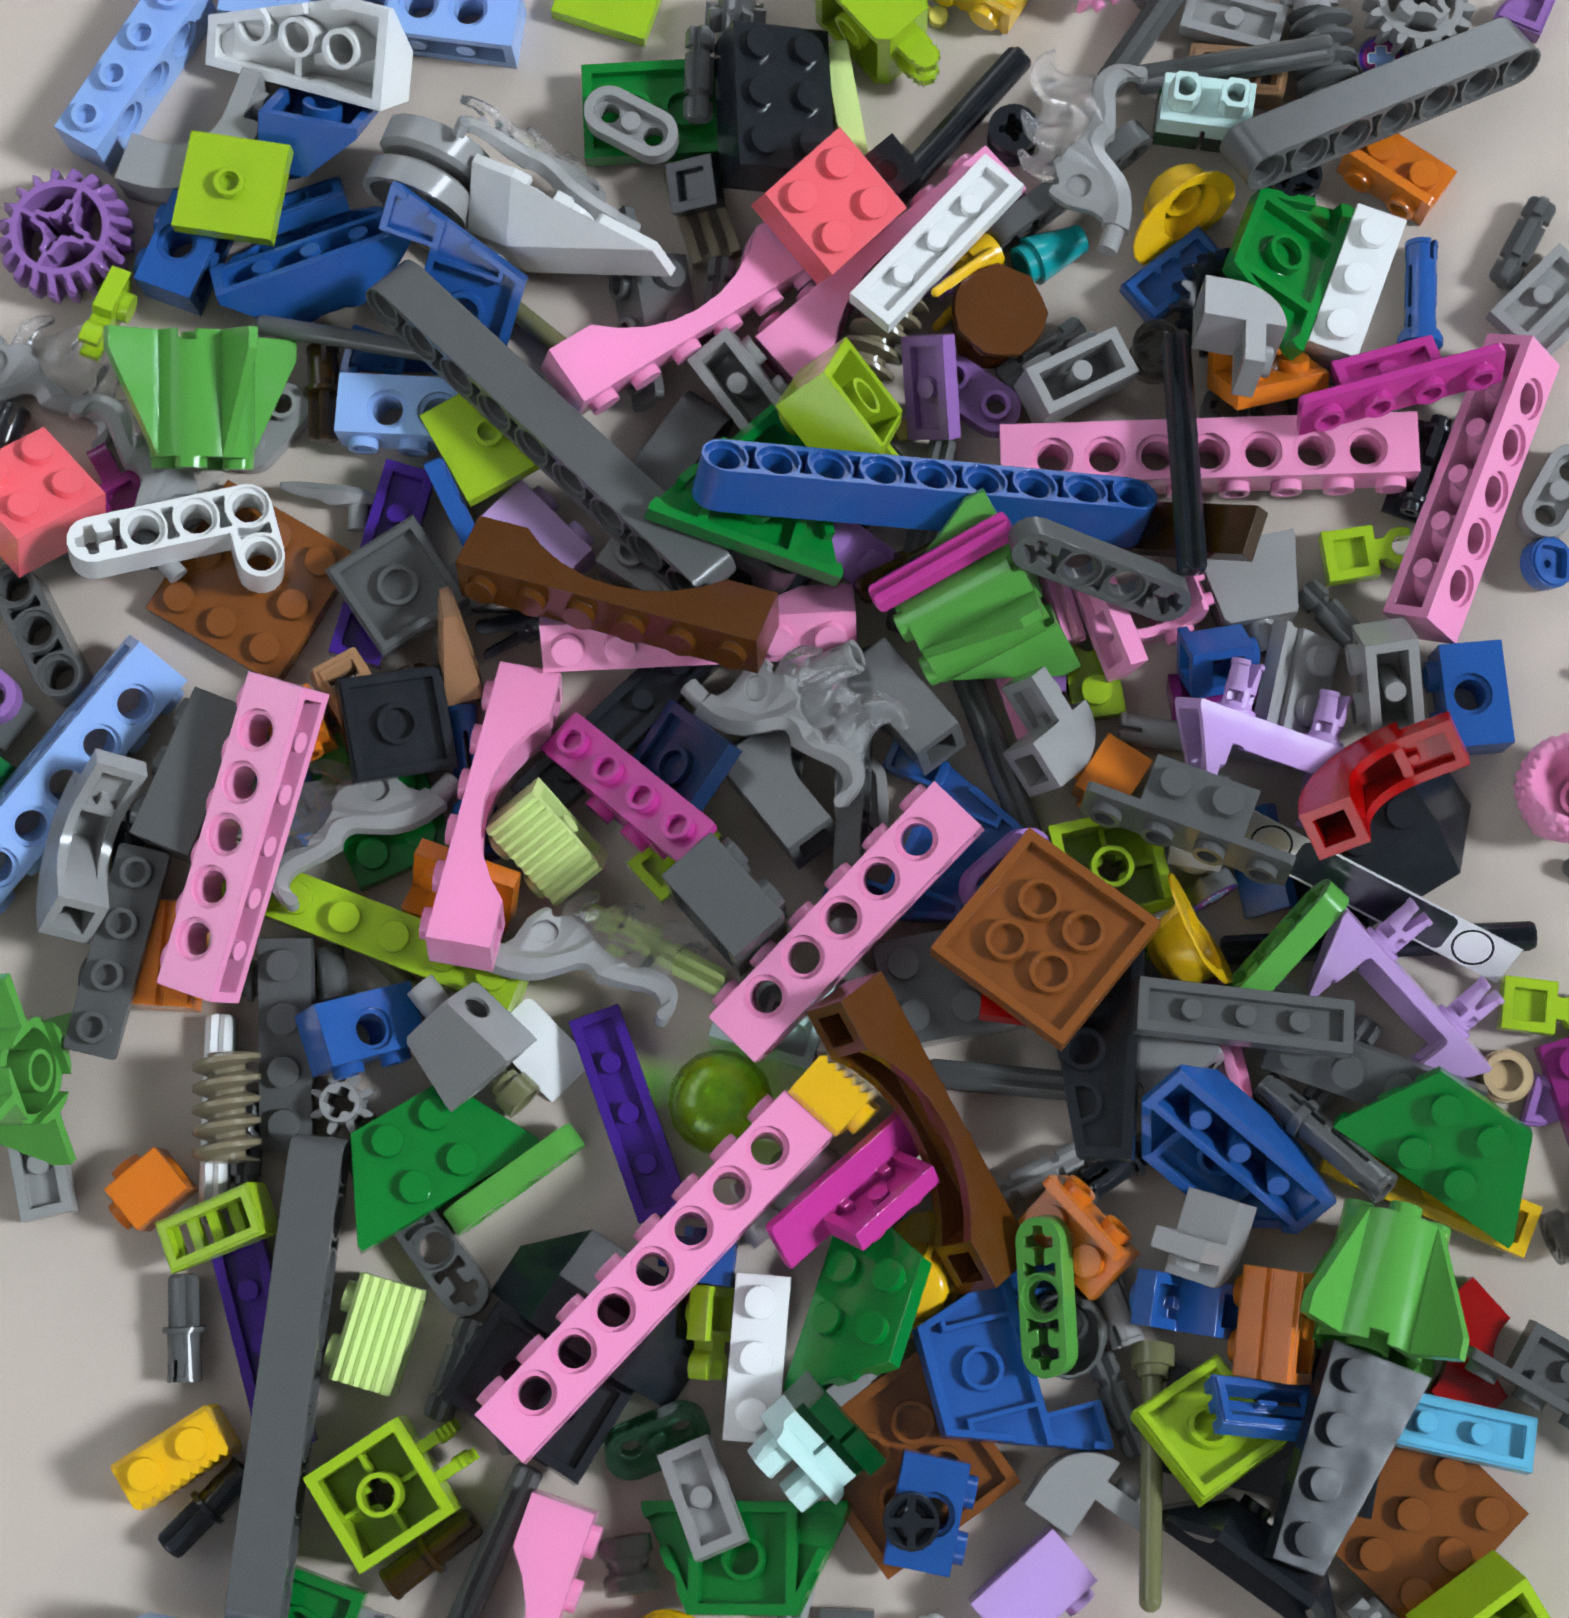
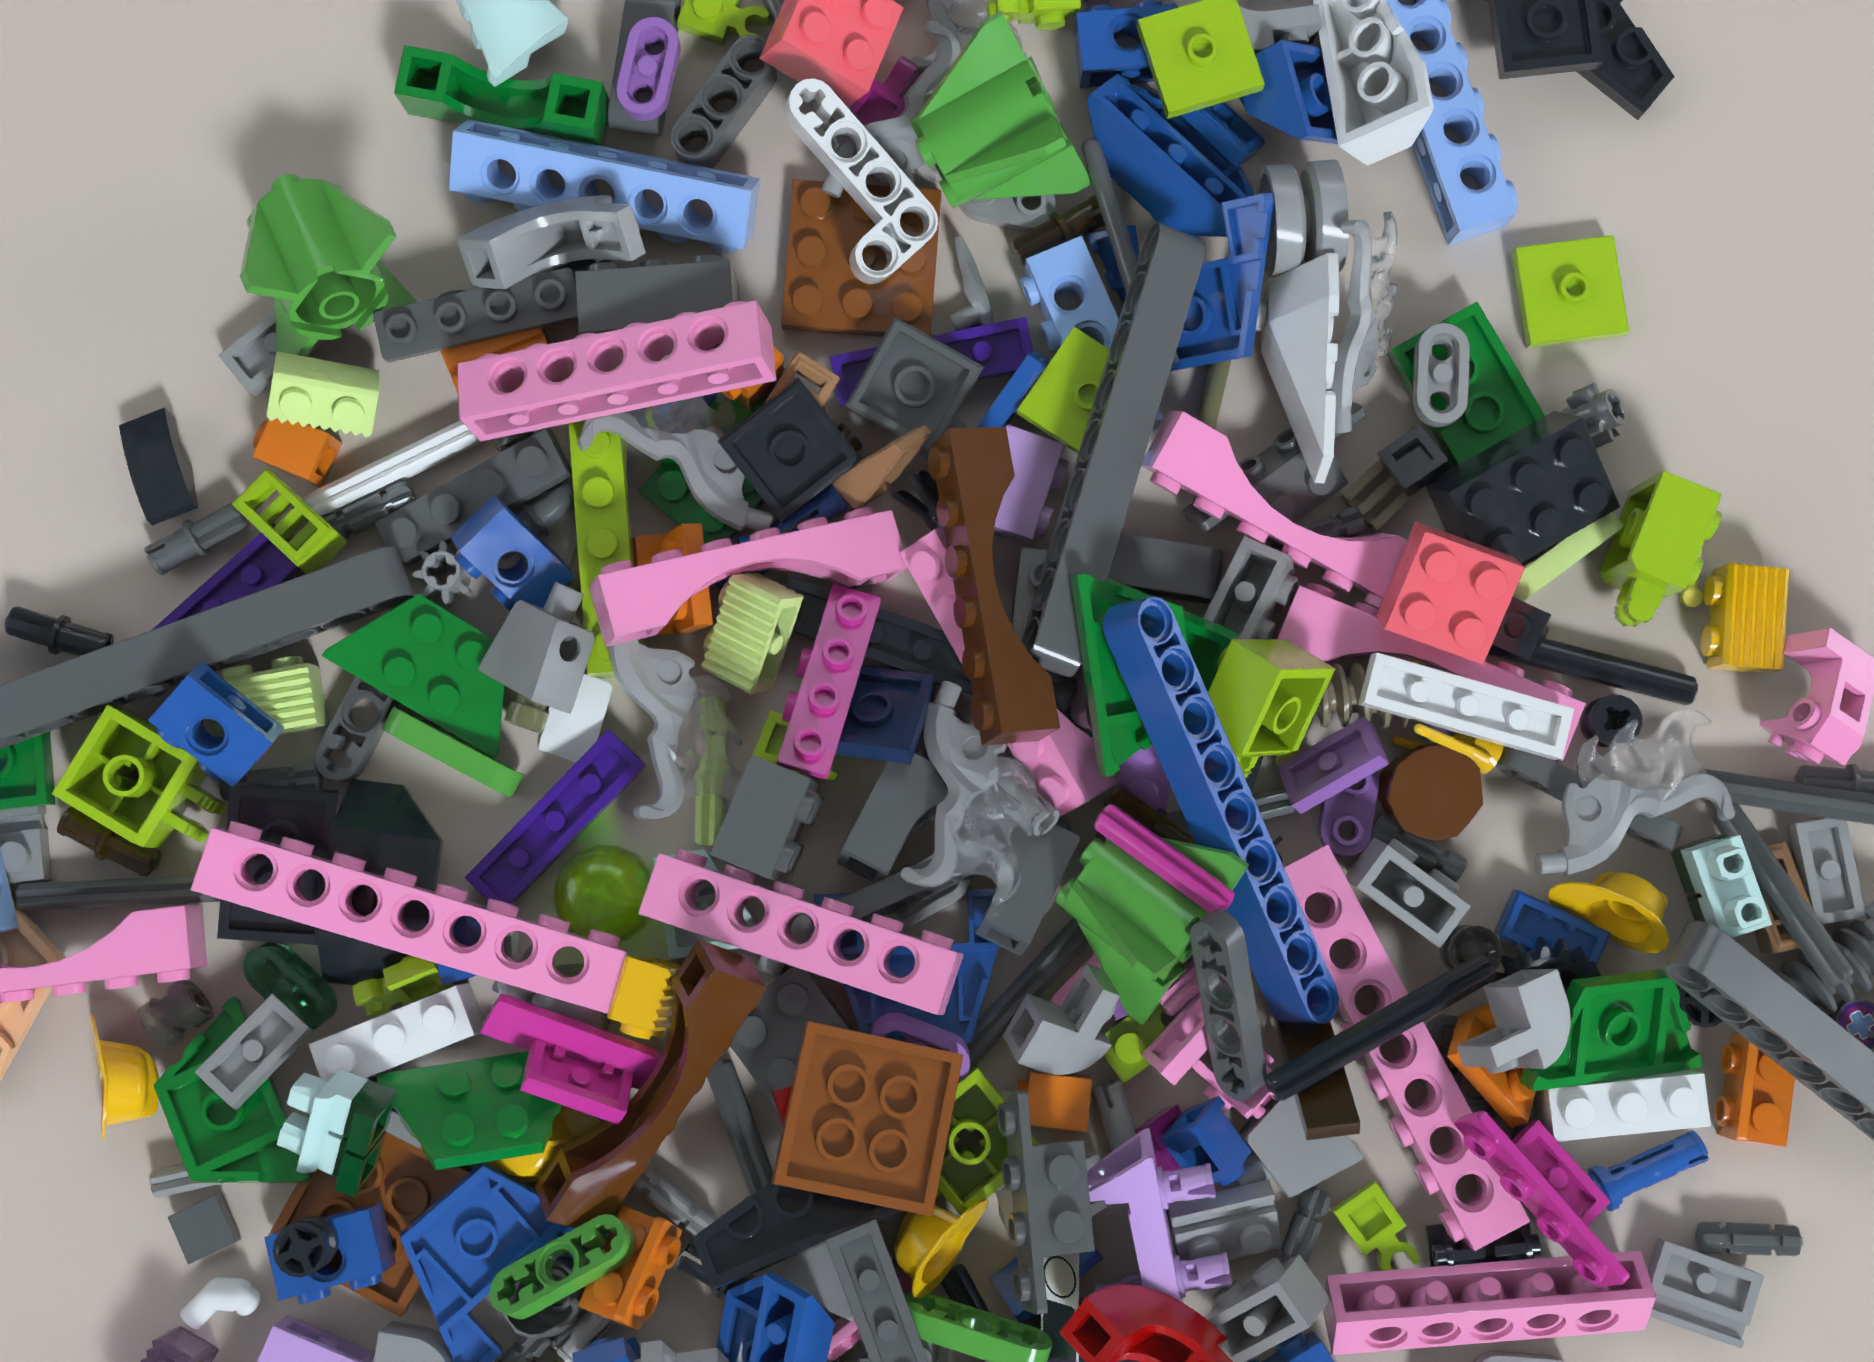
camera: 55 degrees right, 5 degrees up
(96, 1332) = (156, 468): none -> black slope
(114, 1132) = (323, 394): none -> yellowish green brick
(176, 1457) = (85, 588): yellow brick -> none
(225, 1107) = (390, 477): dark tan piece -> none
(344, 1375) = (209, 696): none -> blue brick
(699, 74) = (1520, 411): dark grey axle -> none
(1048, 252) = (1515, 808): teal cone -> none
(1210, 889) = (995, 1233): dark grey tile -> none

